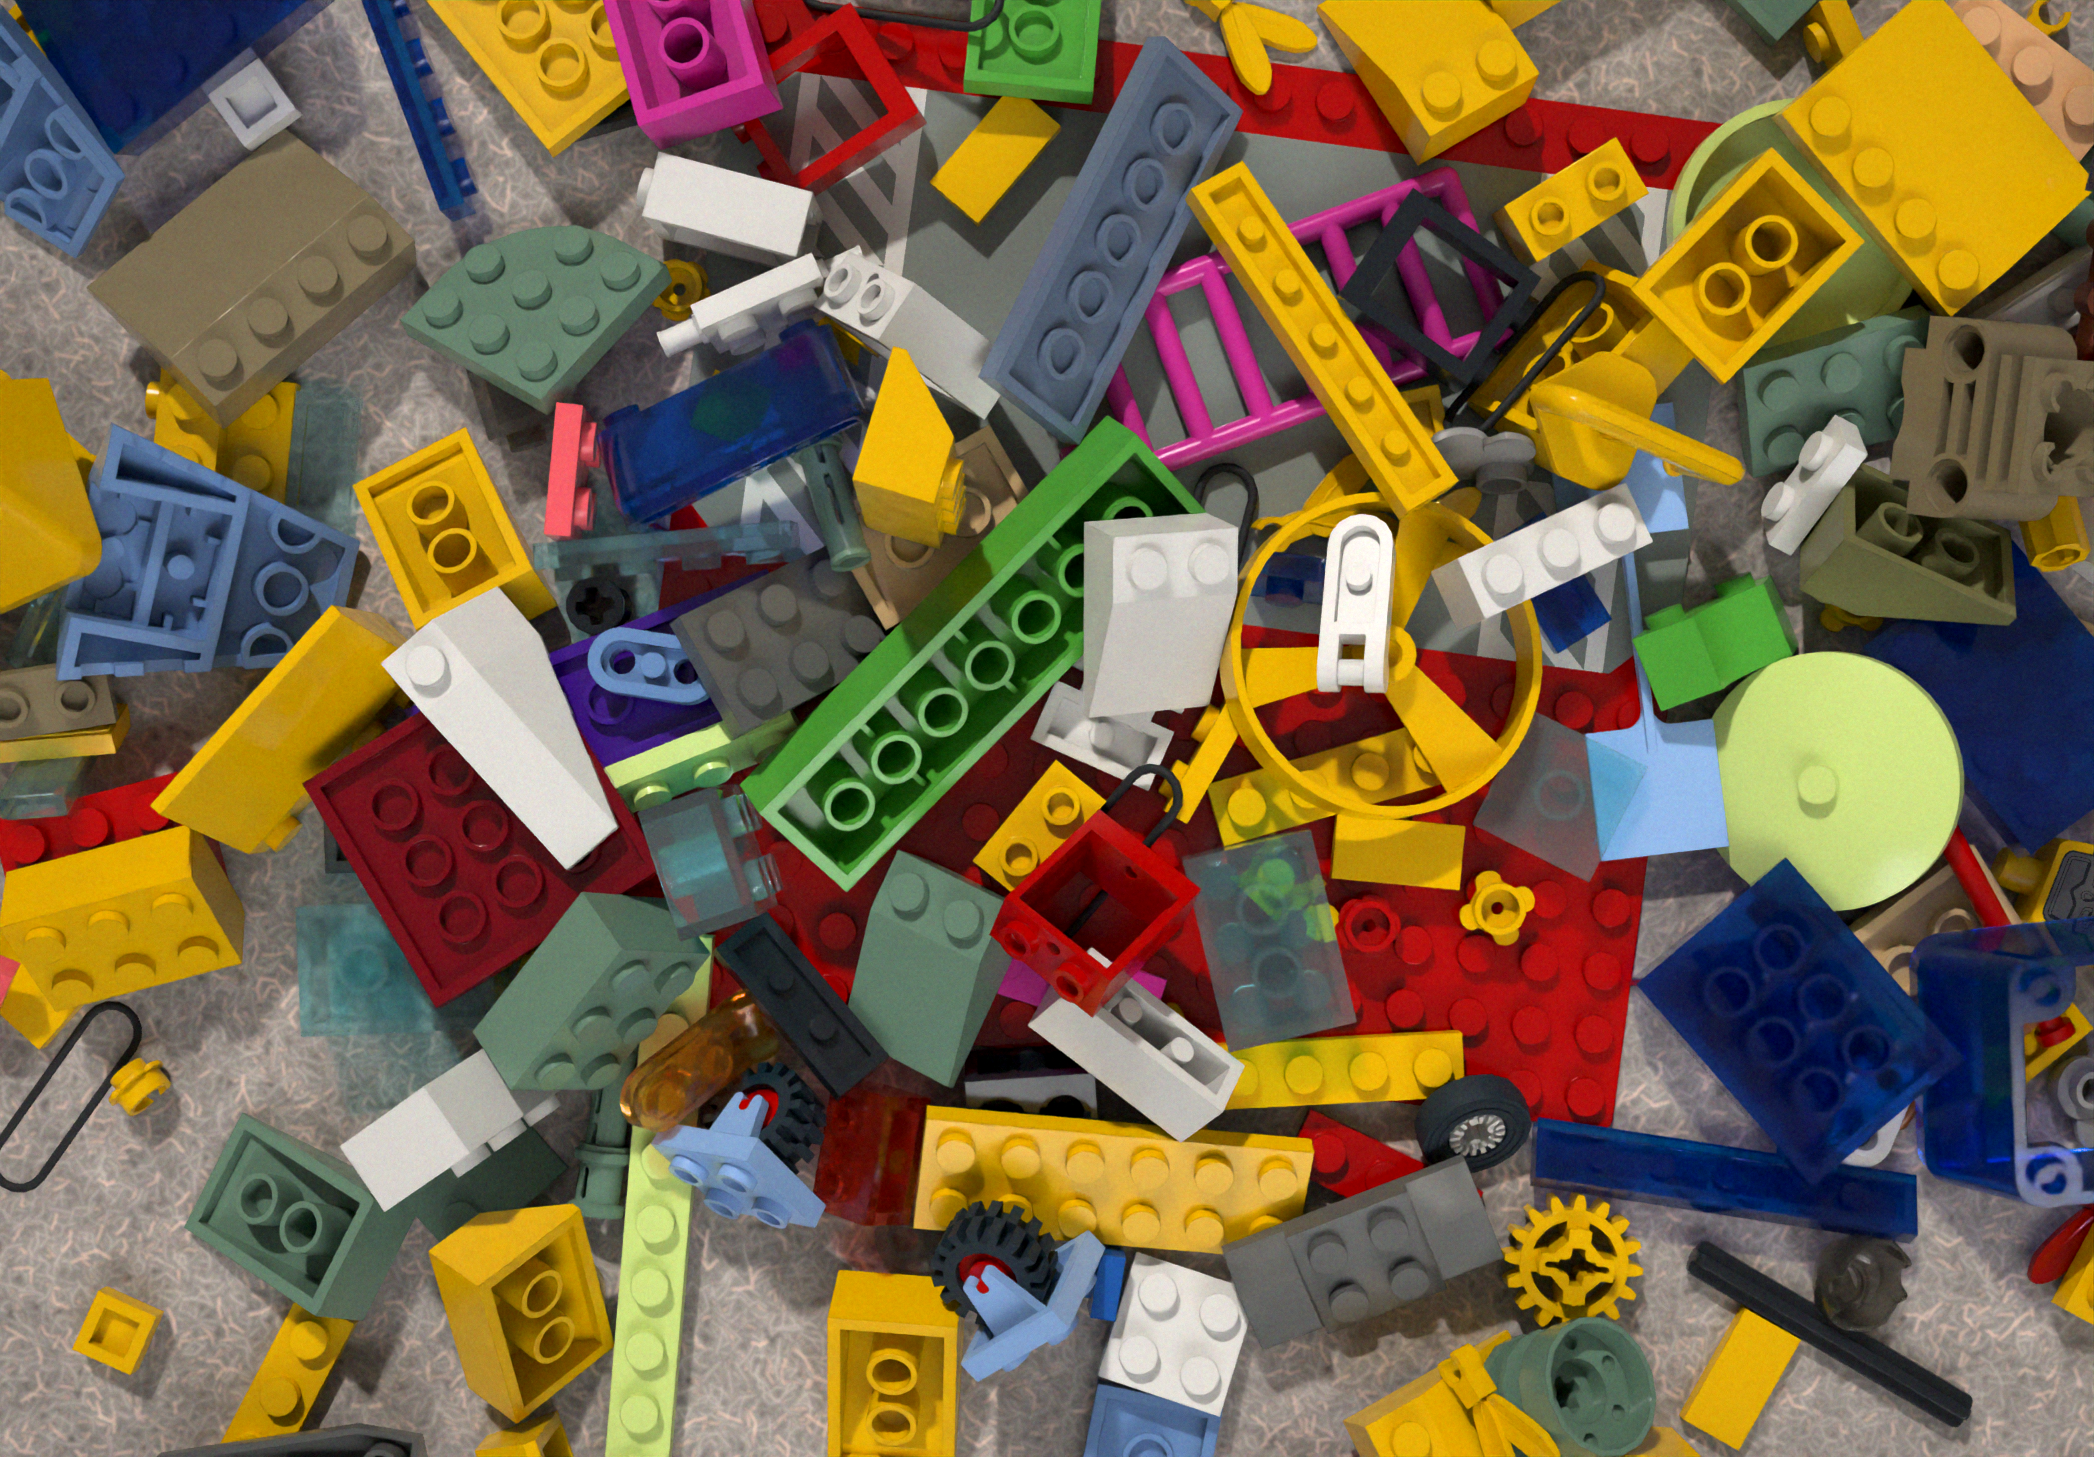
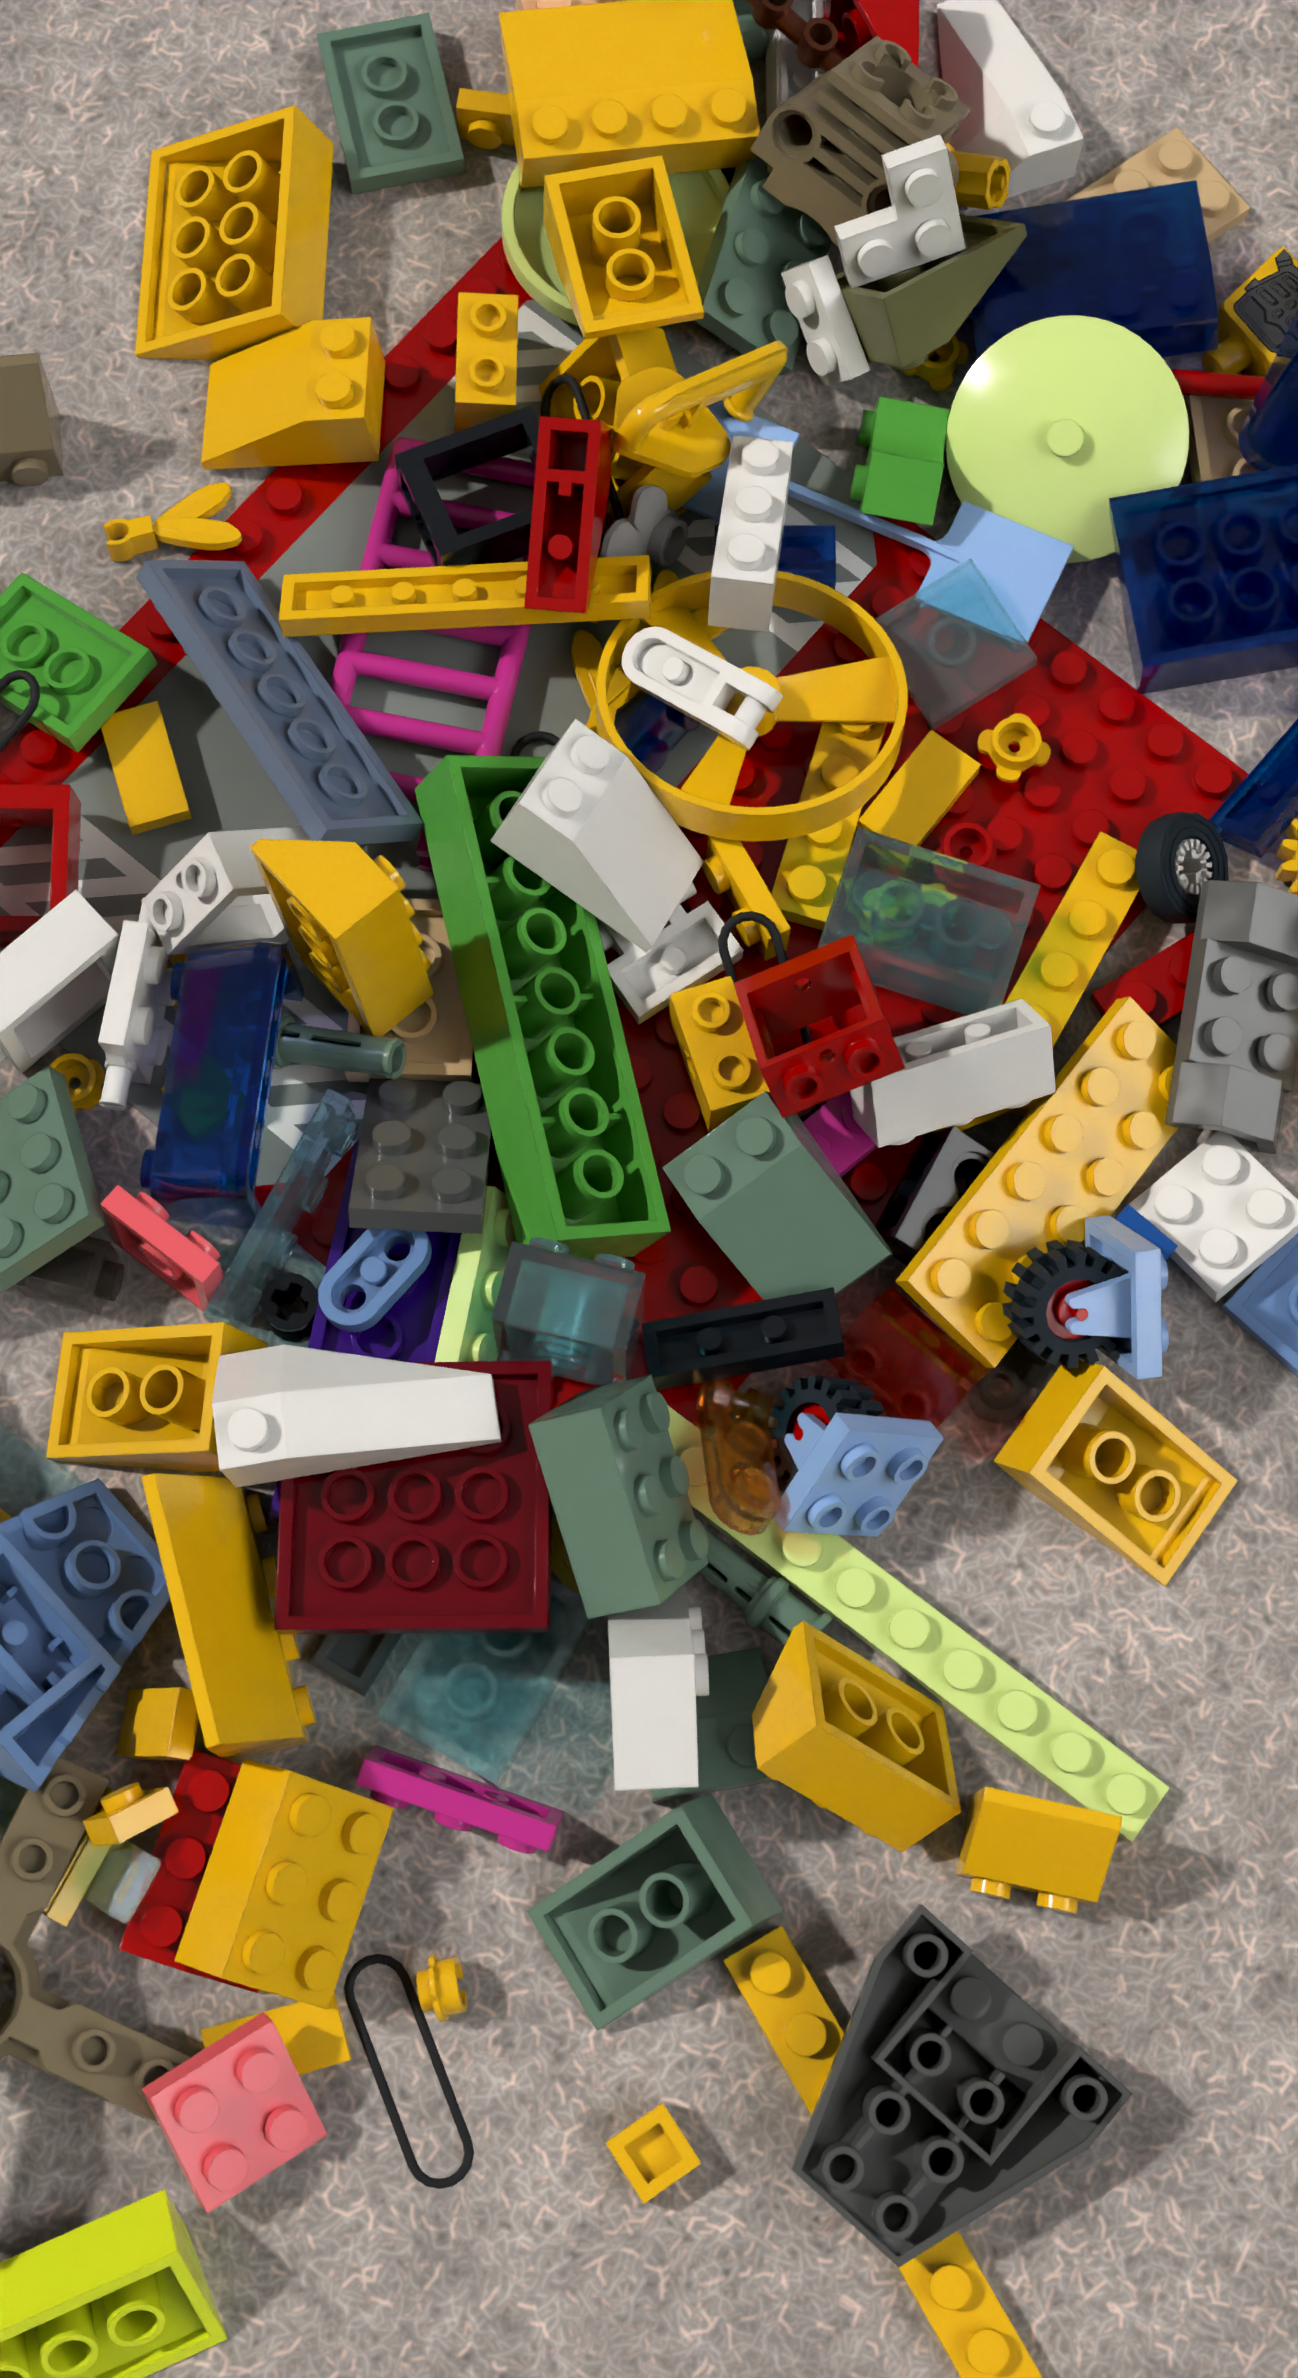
camera: 65 degrees left, 15 degrees down
(91, 762) = (129, 1813): none -> yellow plate
(183, 728) = (158, 1724): none -> yellow tile
(300, 1064) = (459, 1800): none -> dark pink plate
(1442, 387) = (567, 512): none -> red slope
(1943, 524) = (917, 226): none -> white plate

